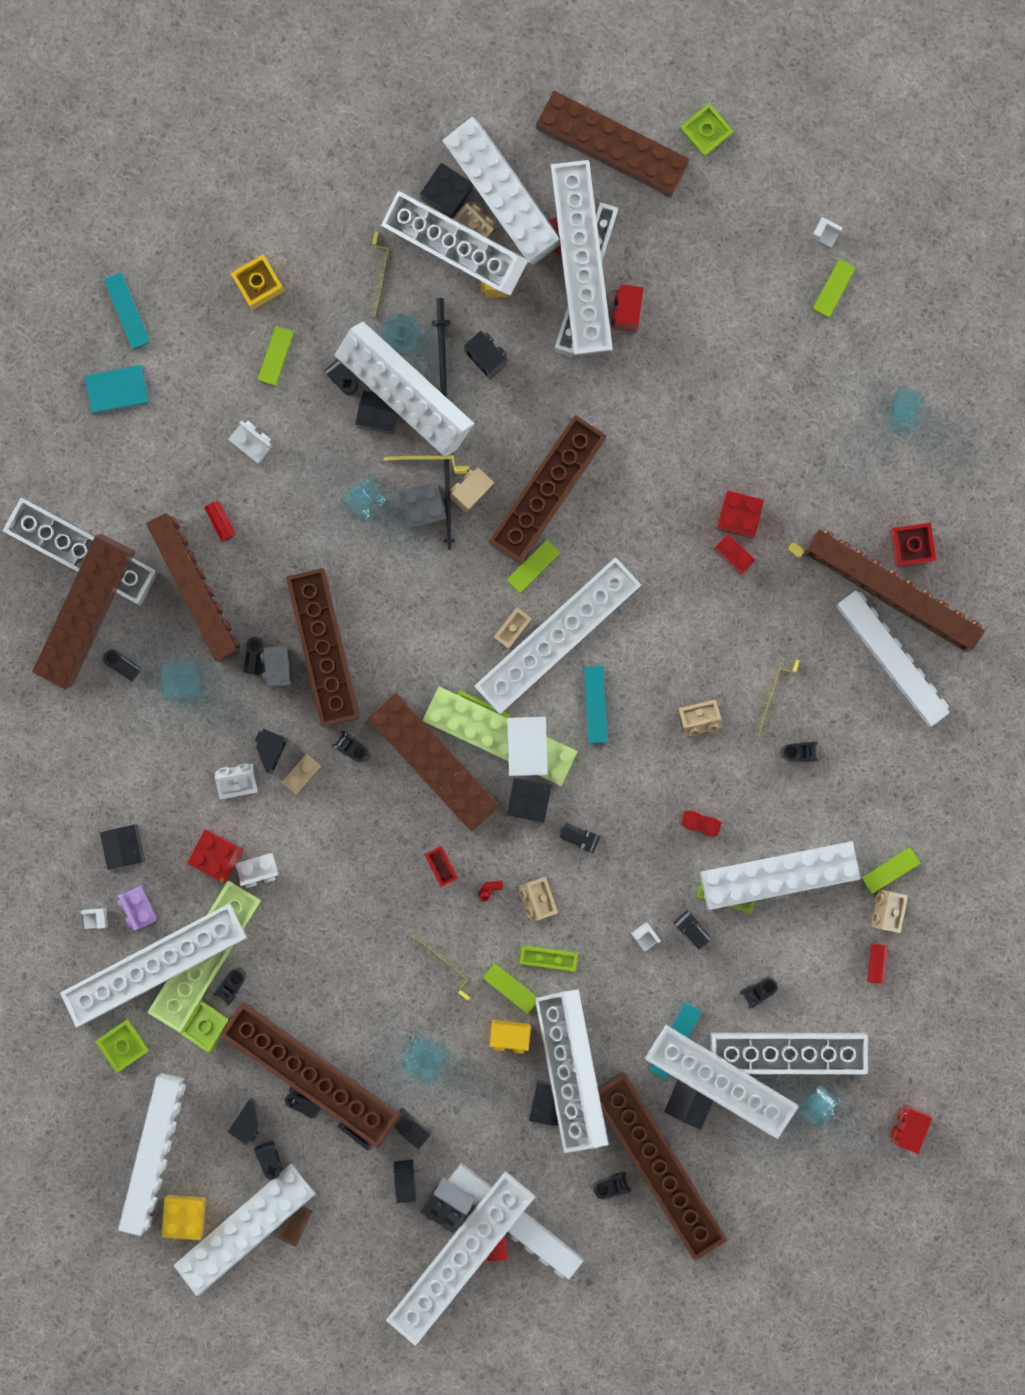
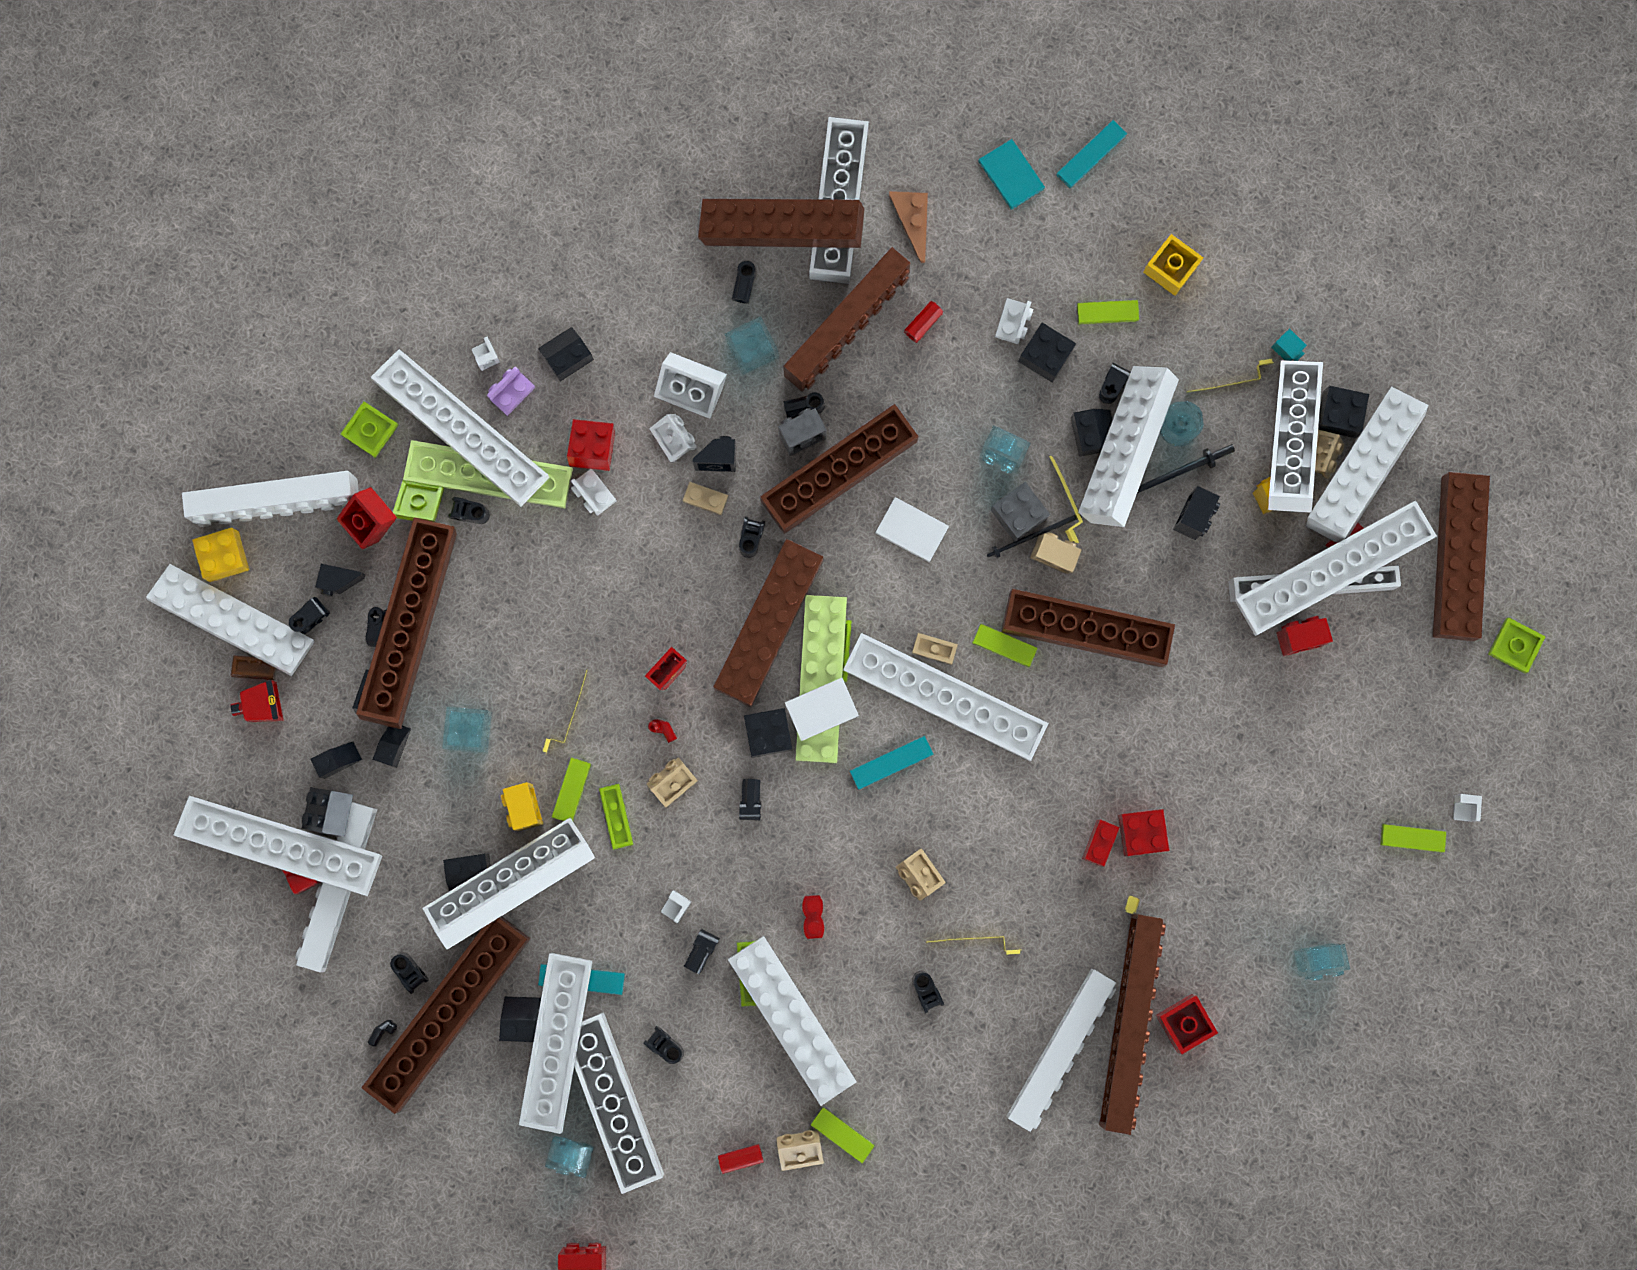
camera: 65 degrees right, 5 degrees down
(116, 490) = (912, 211): none -> nougat wing
(195, 748) = (689, 385): none -> white slope
(203, 1077) = (366, 518): none -> red brick
(291, 424) = (1047, 352): none -> black brick
(329, 1230) = (259, 703): none -> red torso
(370, 211) = (1289, 346): none -> teal brick
(400, 605) = (912, 529): none -> white tile
(651, 1229) = (379, 1030): none -> black arm

